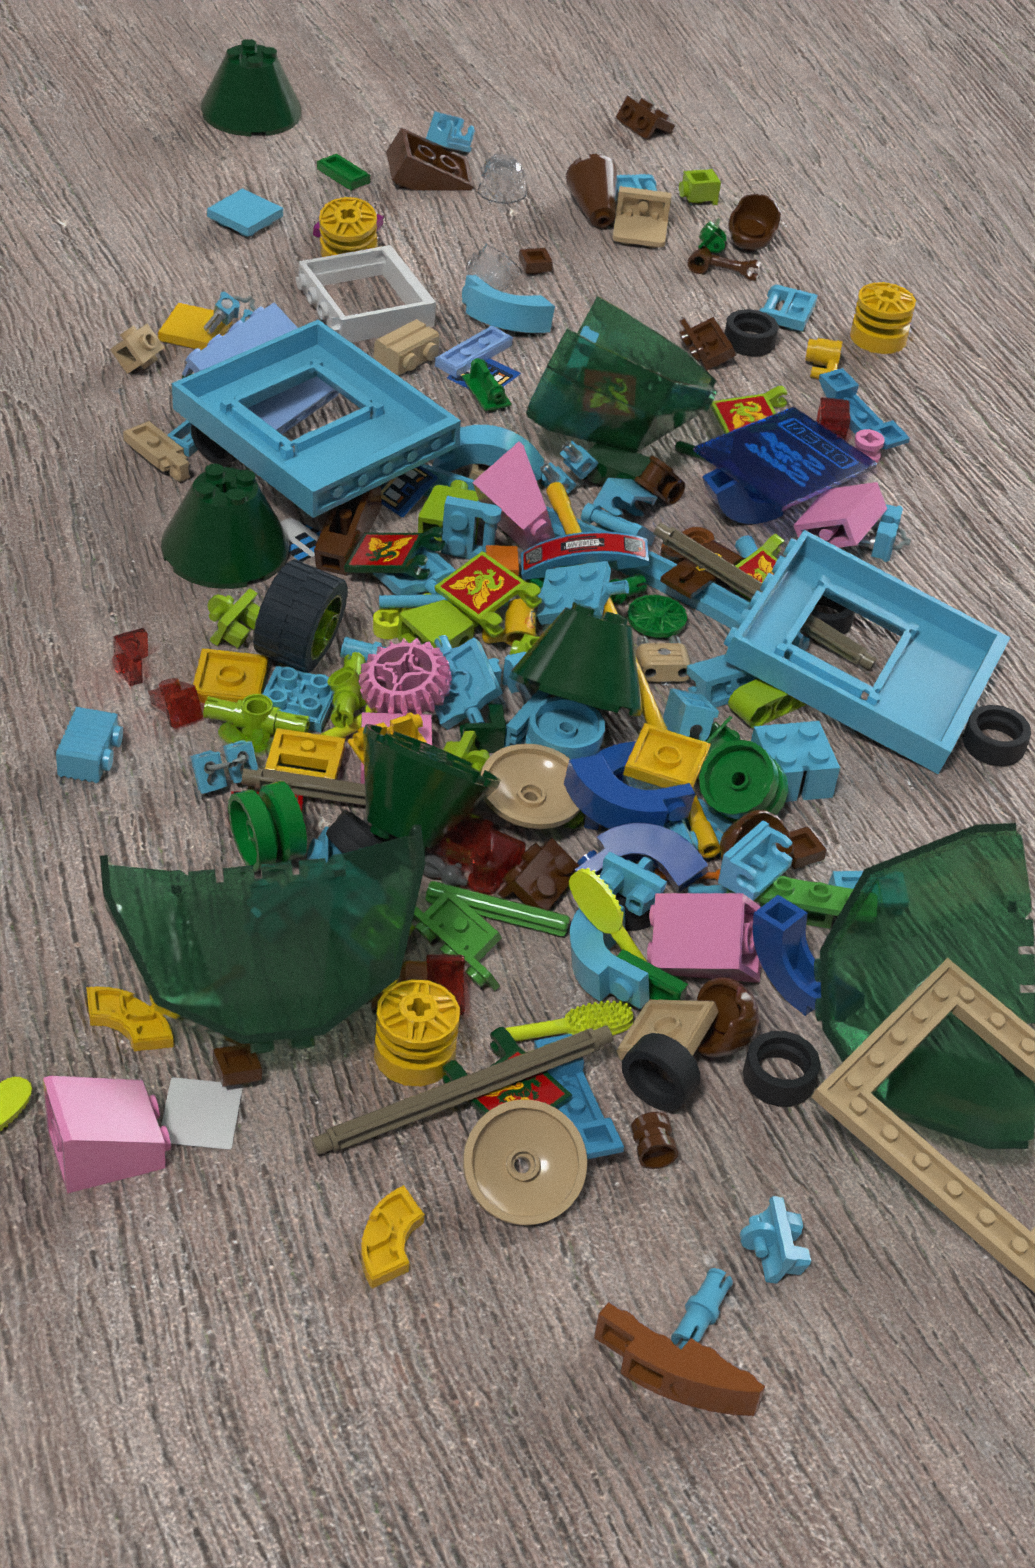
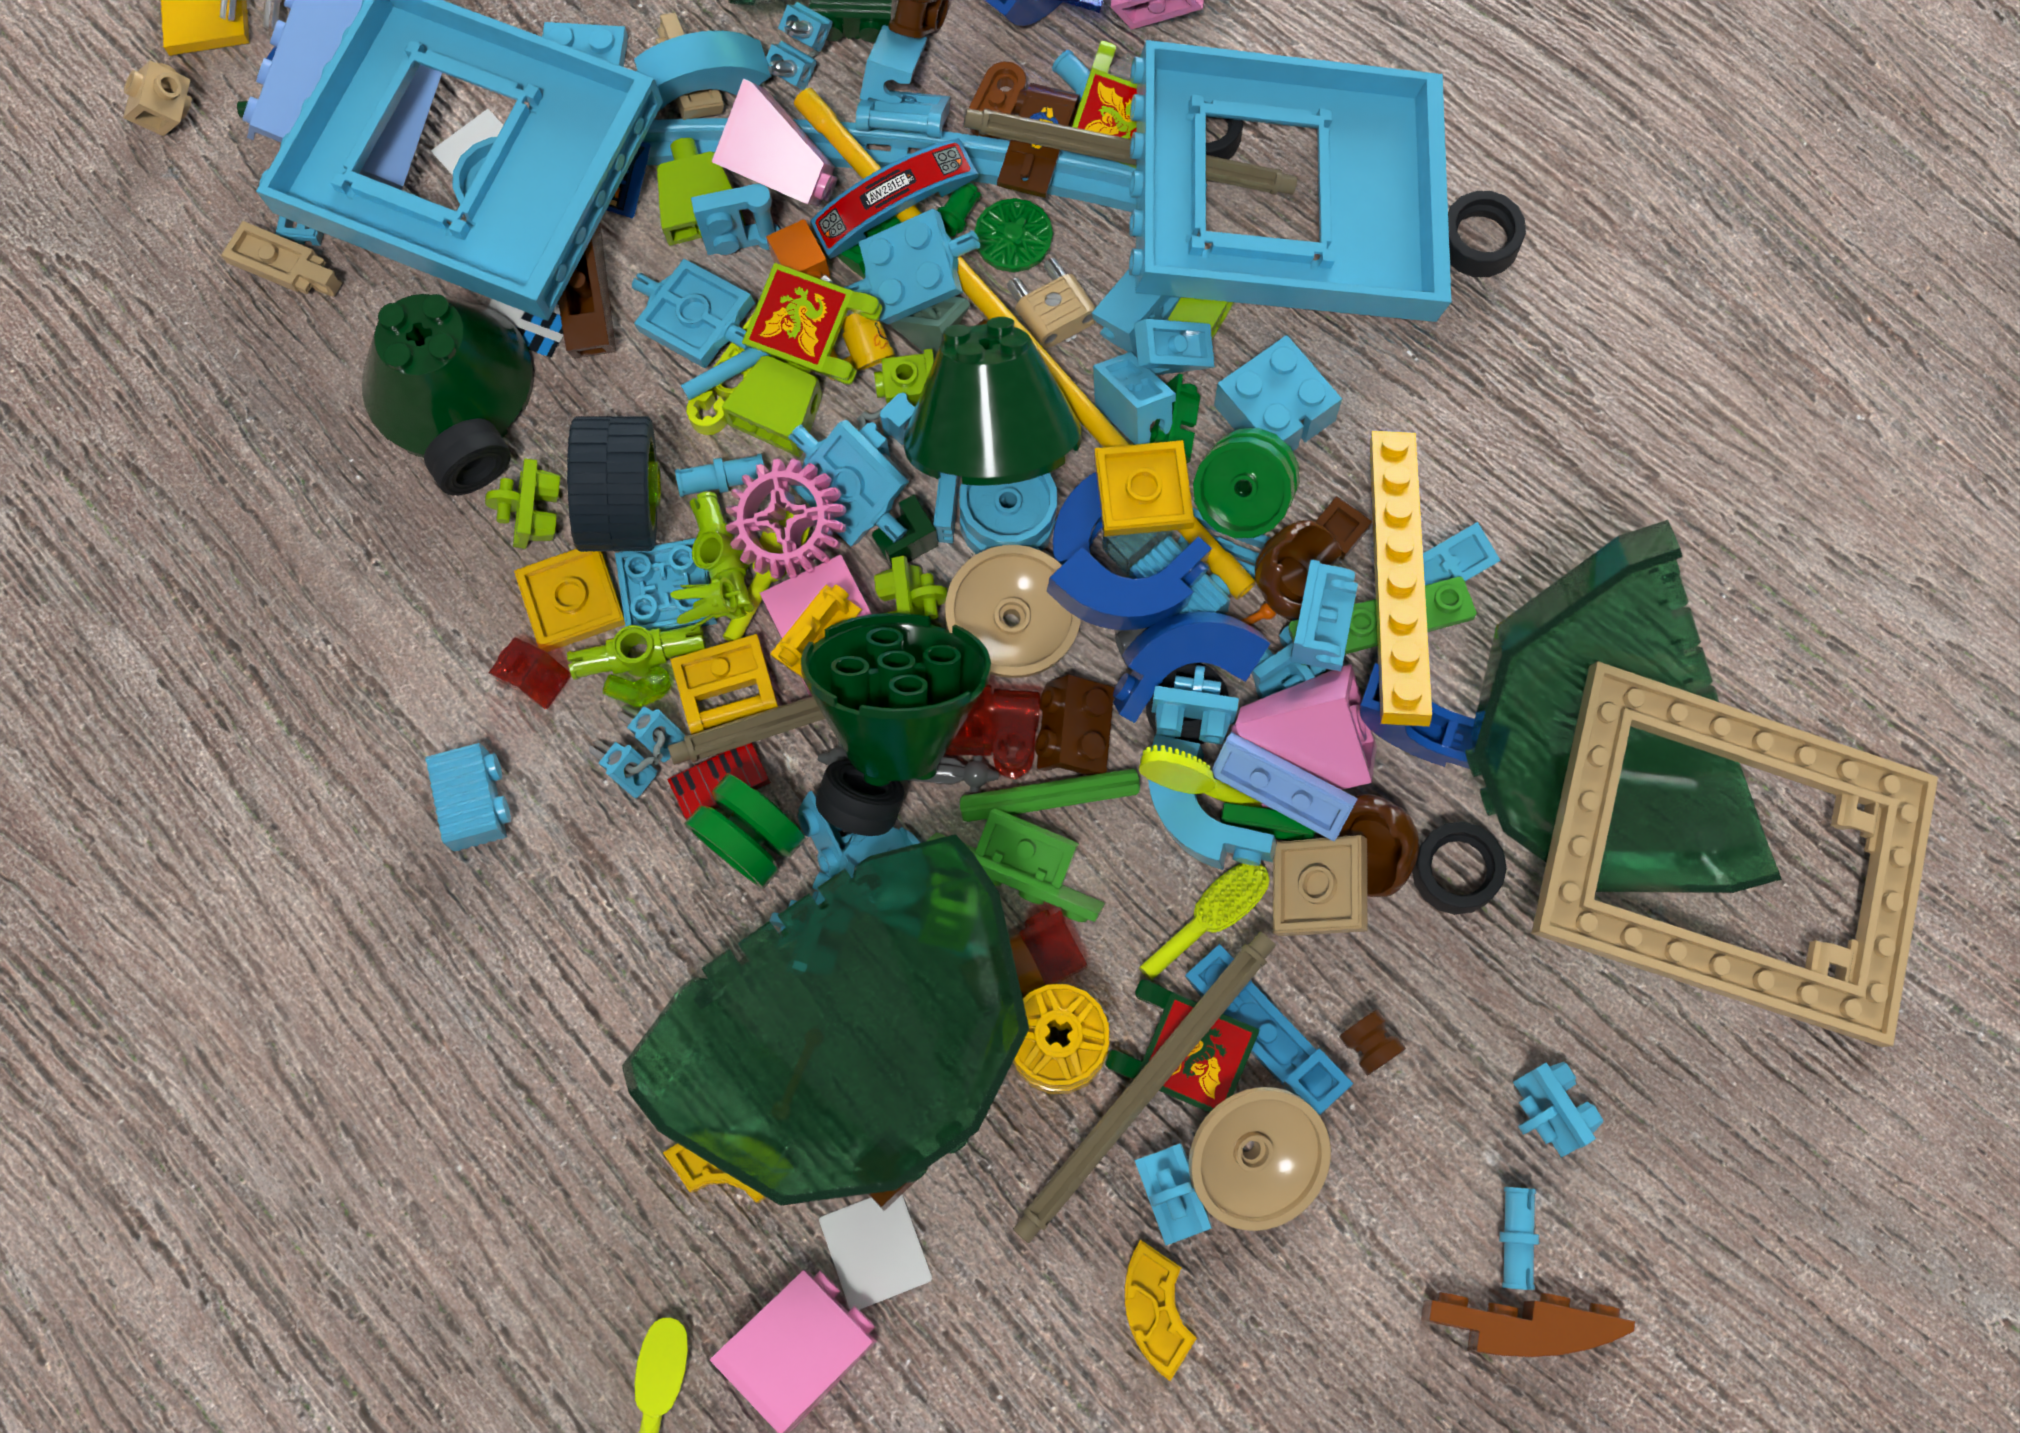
camera: 15 degrees left, 30 degrees up
(128, 654) = (426, 622): clear red bracket -> none
(206, 560) = (467, 457): none -> black tyre
(325, 697) = (717, 601): none -> lime piece
(394, 553) = (656, 304): flag -> none
(443, 1163) = (1172, 1195): none -> medium azure hips
(671, 948) = (1283, 786): none -> light blue tile
(673, 1059) = (1343, 955): black tyre -> none
(733, 695) = (1173, 346): none -> medium azure slope
(824, 868) = (1399, 581): none -> yellow plate

